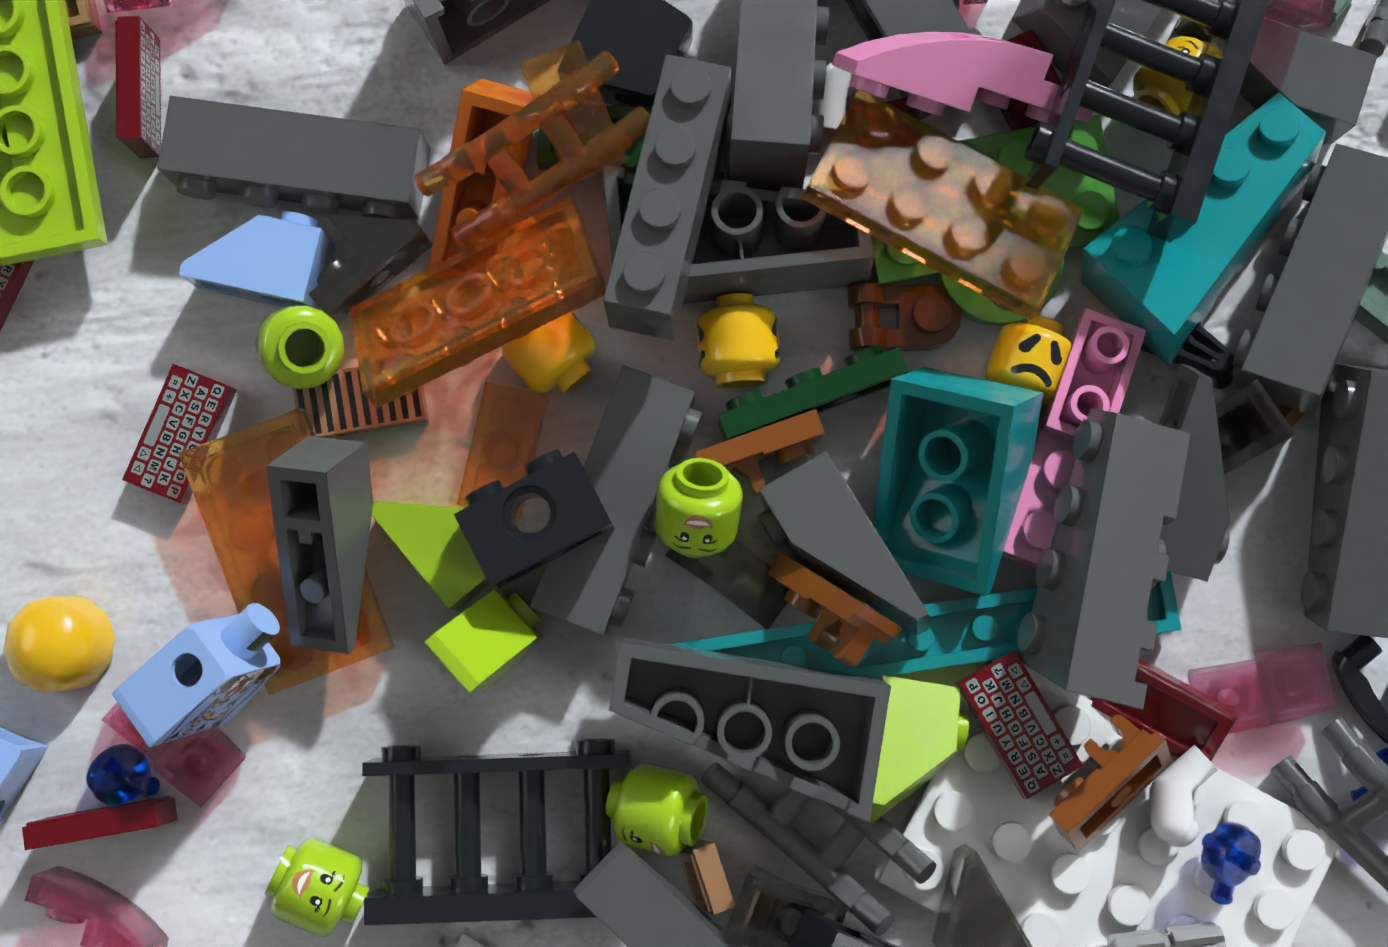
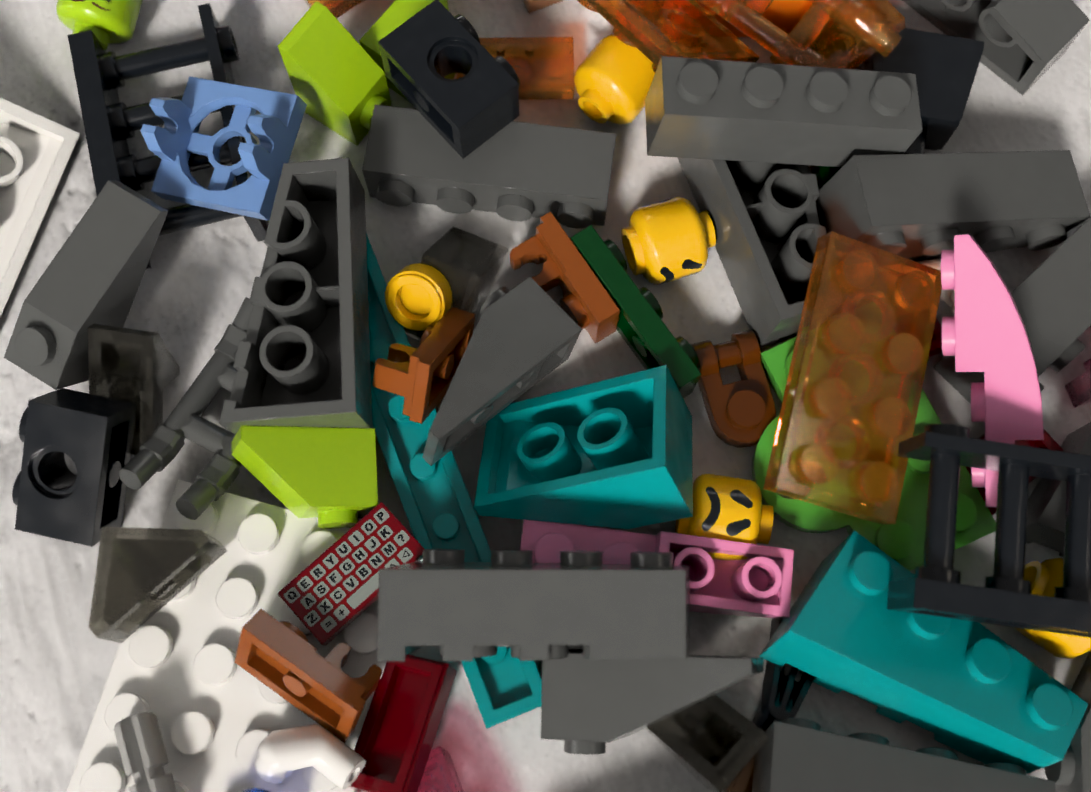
camera: 75 degrees right, 10 degrees down
(570, 725) = (174, 143): none -> medium blue piece
(657, 809) = (211, 258): lime head -> none
(698, 508) = (496, 218): lime head -> none
(706, 877) = (160, 313): medium nougat tile -> none
(753, 605) = (418, 296): none -> yellow tile

